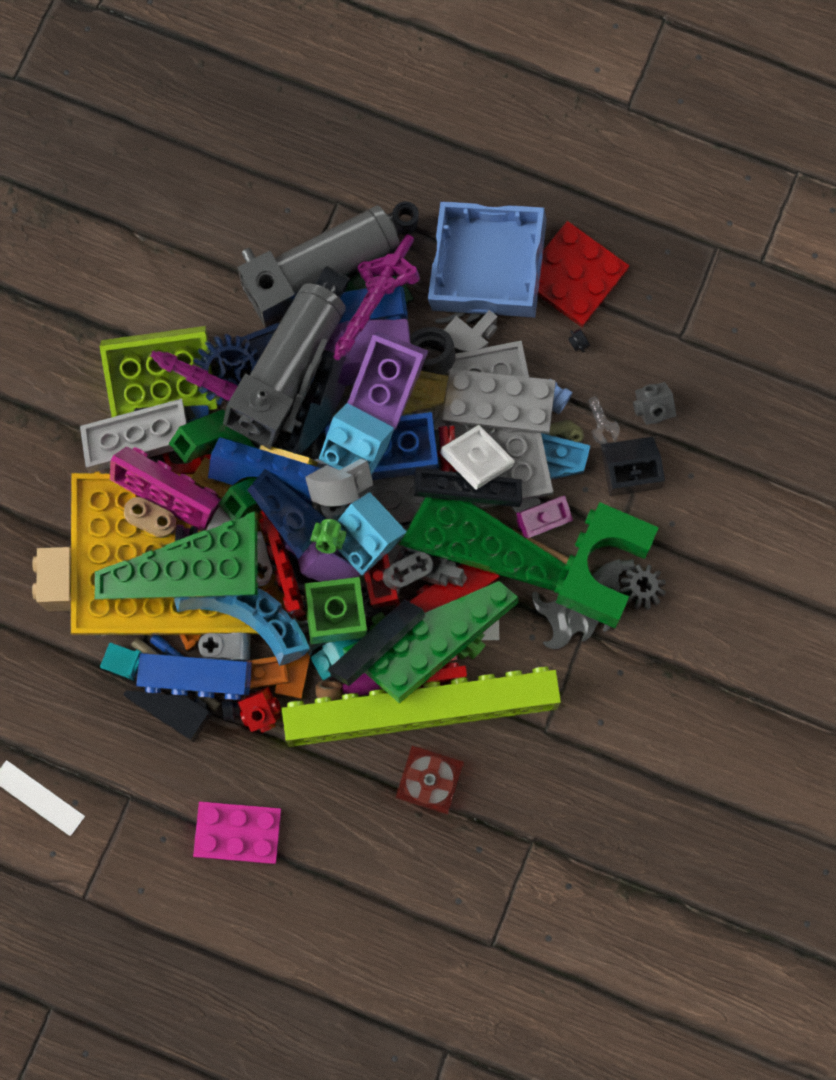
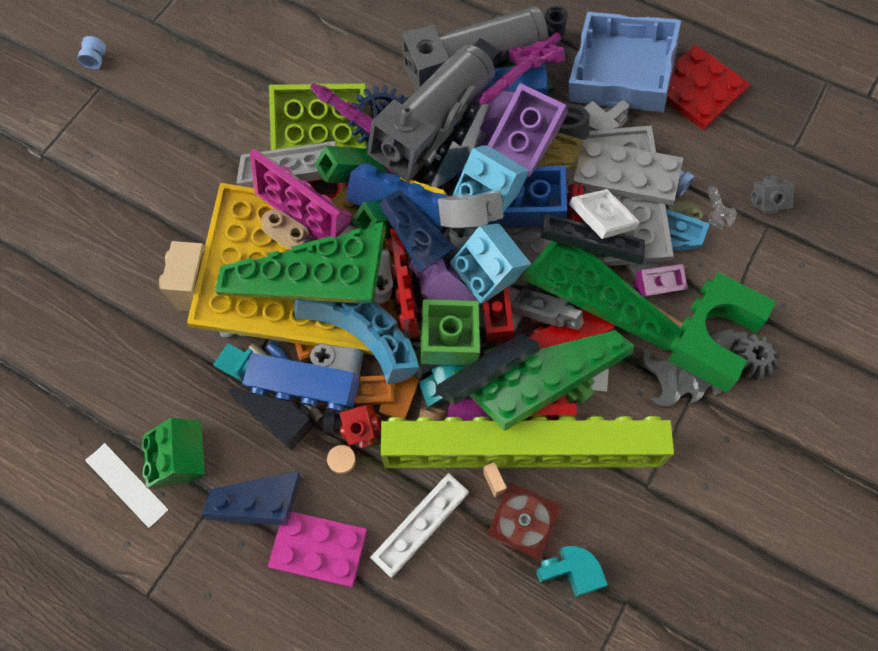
camera: 10 degrees right, 10 degrees down
(80, 762) = (173, 453): none -> green slope
(169, 797) = (254, 501): none -> dark blue wing
(245, 745) = (341, 459): none -> light nougat tile
(328, 536) = (453, 255): bright green gear -> none
(331, 797) = (419, 525): none -> white tile
(396, 745) = (494, 480): none -> light nougat tile
(405, 566) = (529, 310): dark grey beam -> none
(485, 815) = (579, 565): none -> teal brick
(579, 340) = (701, 137): black plate -> none
(632, 466) = (750, 248): black slope -> none

